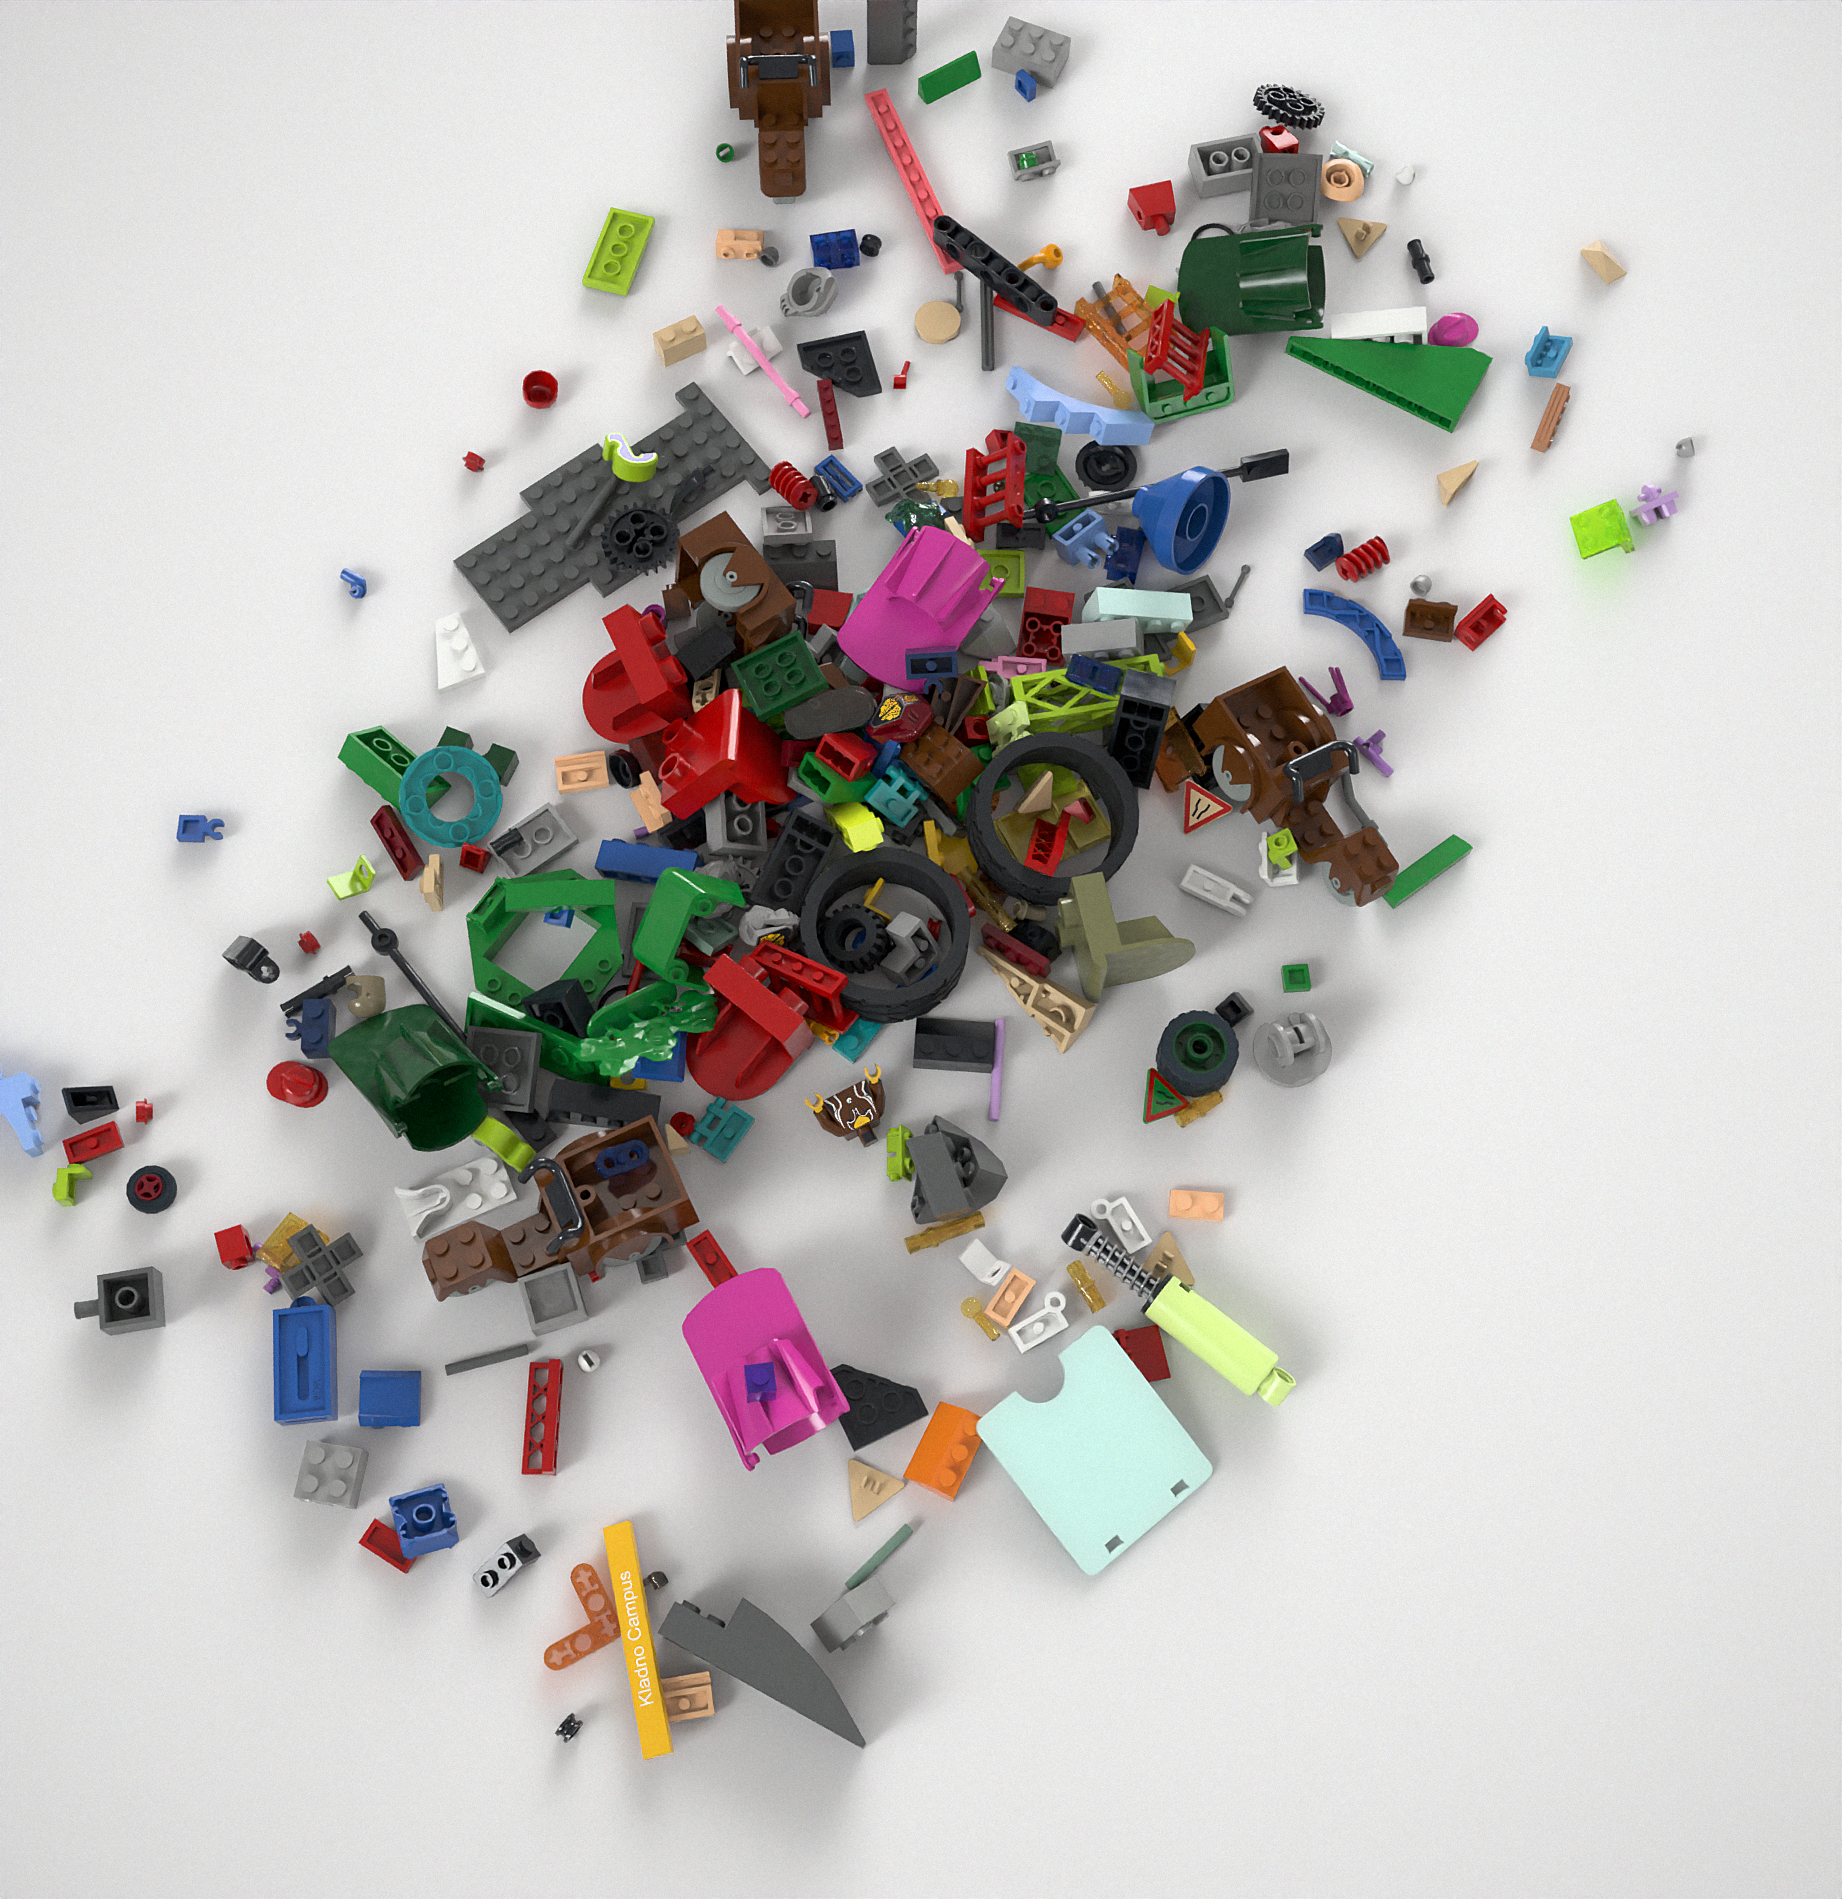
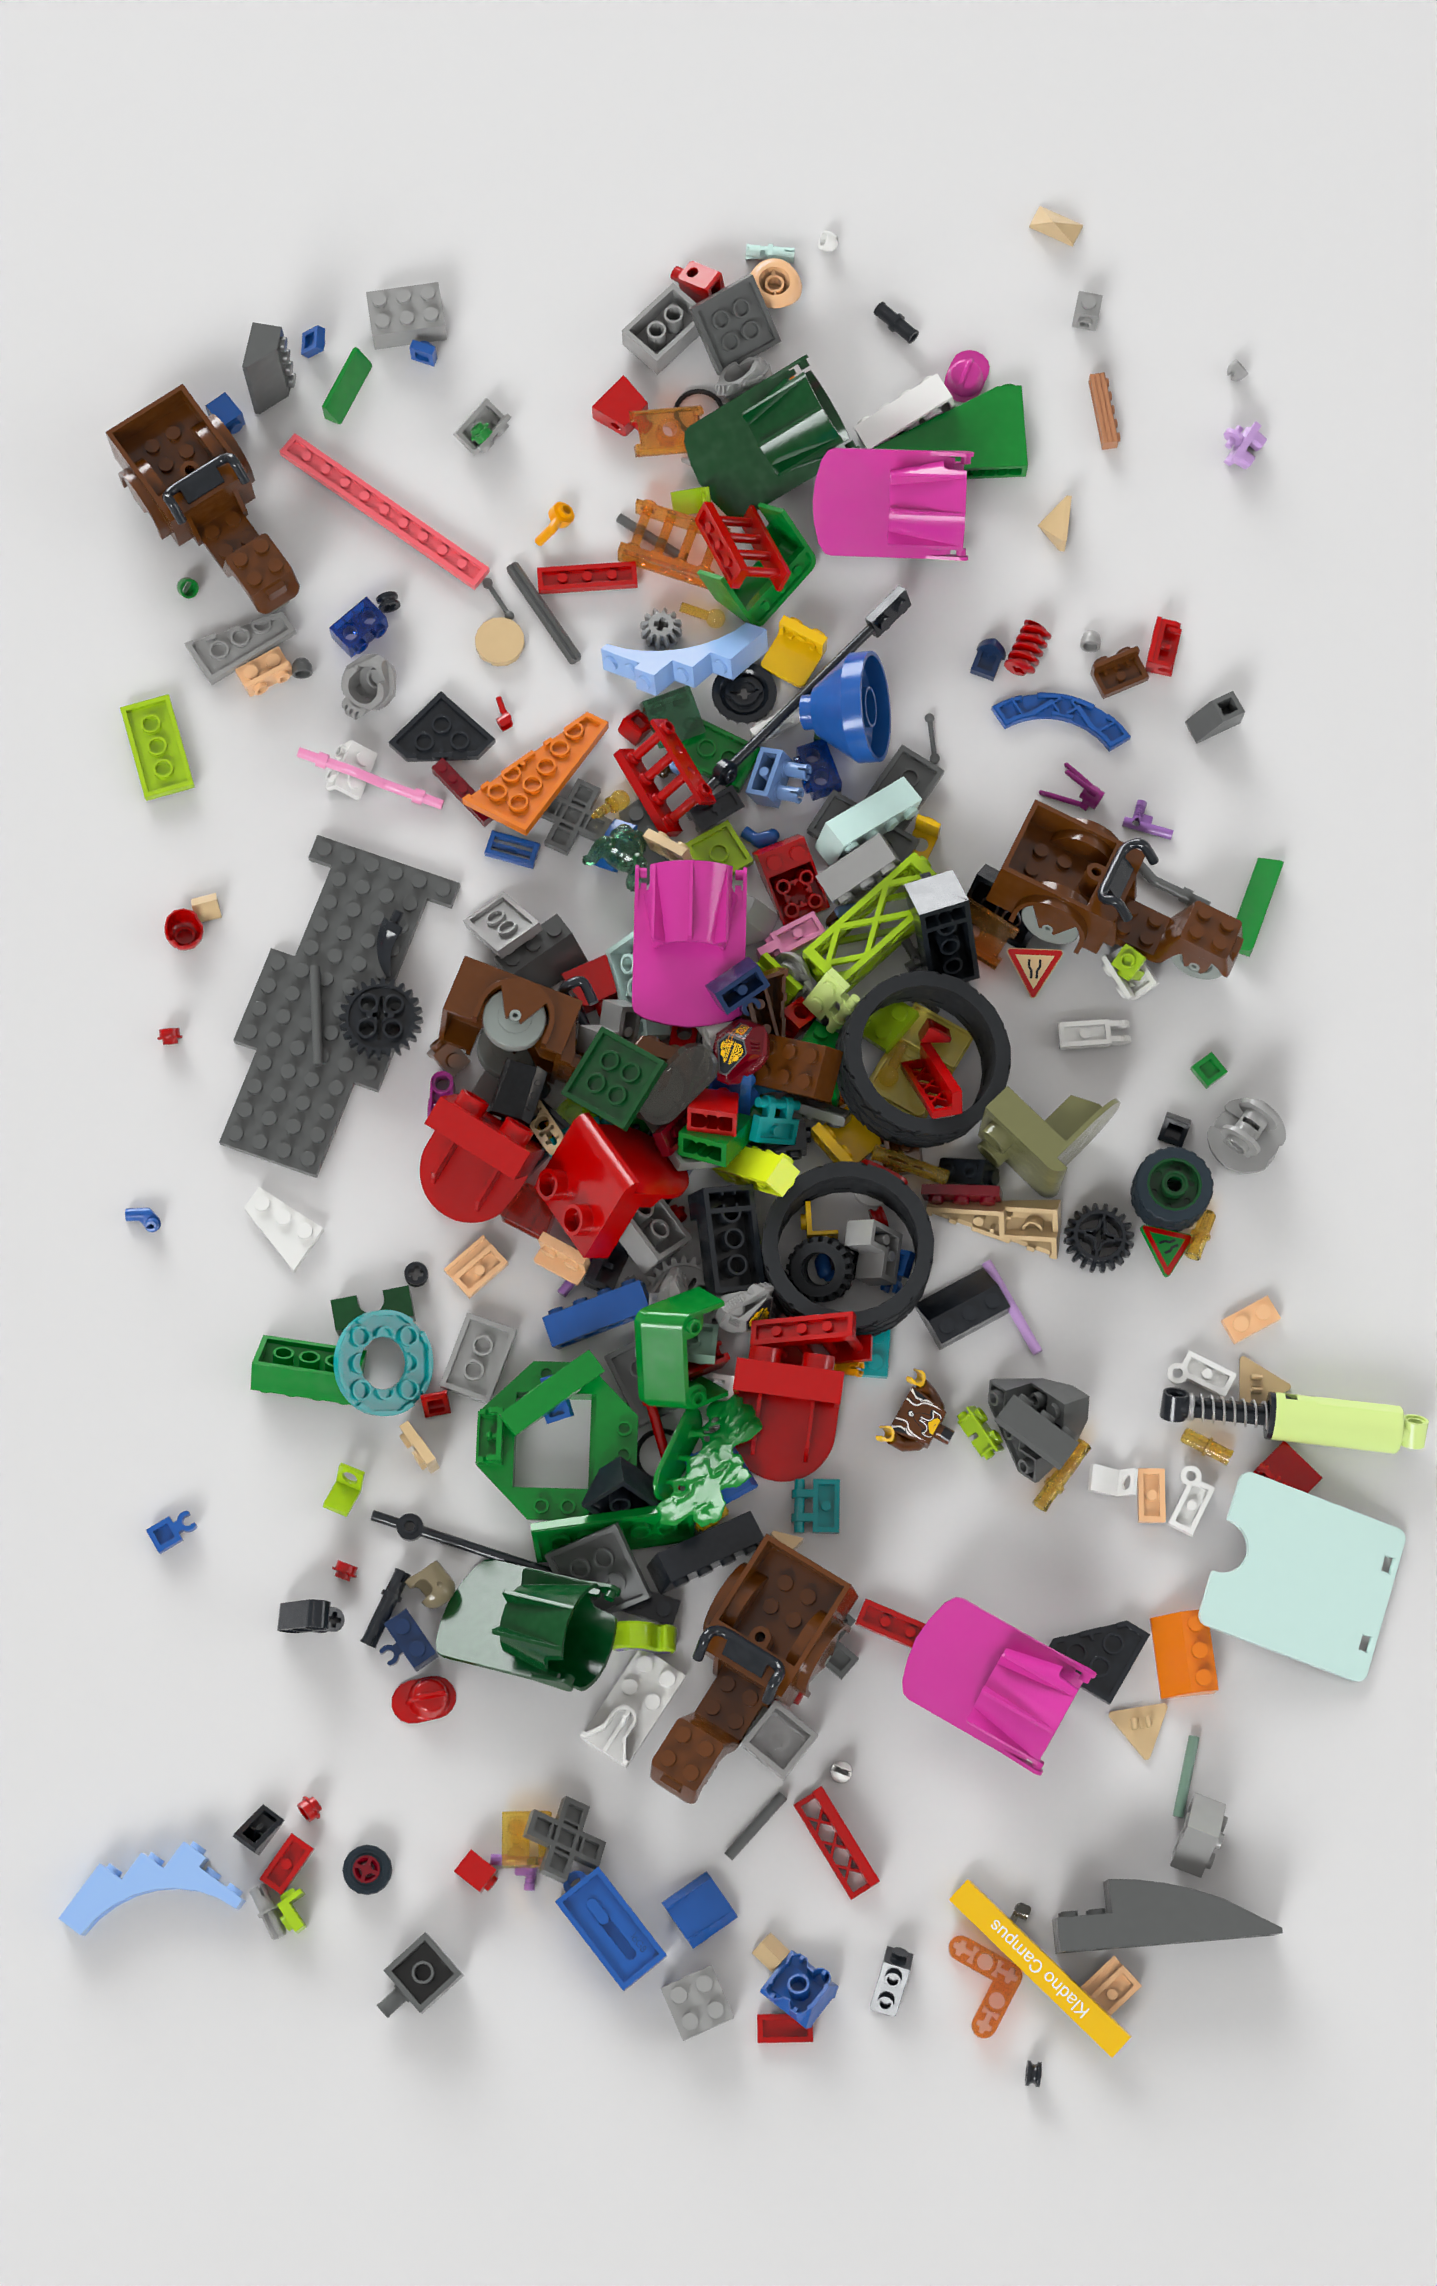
camera: 30 degrees left, 5 degrees up
(49, 1172) = (268, 1911): none -> light grey axle
(397, 842) = (358, 1432): dark red plate -> none
(424, 1472) = (771, 1952): none -> tan slope
(507, 841) = (459, 1371): black pin -> none
(531, 757) = (421, 1279): none -> black bush
(570, 387) = (206, 907): none -> tan slope
(620, 1158) = (766, 1588): clear blue plate -> none
(625, 464) = (316, 954): lime animal -> none
(625, 768) = (514, 1240): black hat -> none
(680, 340) = (278, 803): tan brick -> none
(682, 1118) = (777, 1517): red plate -> none
(717, 212) = (226, 651): none -> light grey wing
(760, 1382) = (1019, 1698): dark purple brick -> none
(793, 486) = (482, 884): red piece -> none
(826, 496) = (509, 873): black brick -> none
(892, 433) = (536, 779): none -> orange wing
(946, 34) = (313, 341): none -> blue plate
(972, 1309) = (1125, 1524): clear yellow bar -> none
(995, 270) = (524, 562): black beam -> none
(1023, 910) = (945, 1153): dark tan pin -> none
(1037, 796) = (891, 1044): tan slope -> none
(1041, 581) = (760, 839): none -> blue arm
(1072, 380) = (669, 633): none -> light grey gear
(1094, 675) = (878, 907): clear blue brick -> none
(1116, 1065) = (1108, 1239): none -> black gear
(1165, 230) = (650, 429): none -> clear orange piece
(1168, 454) = (795, 652): none -> yellow bracket
(1288, 106) = (682, 235): black gear -> none
(1322, 382) = (891, 503): none -> dark pink piece
(1360, 234) = (823, 324): tan piece -> none
(1489, 700) = (1215, 717): none -> dark grey slope
(1547, 354) = (1064, 350): dark azure bracket -> none
(1587, 334) = (1087, 310): none -> light grey brick
(1601, 530) = (1212, 495): clear neon green bracket -> none

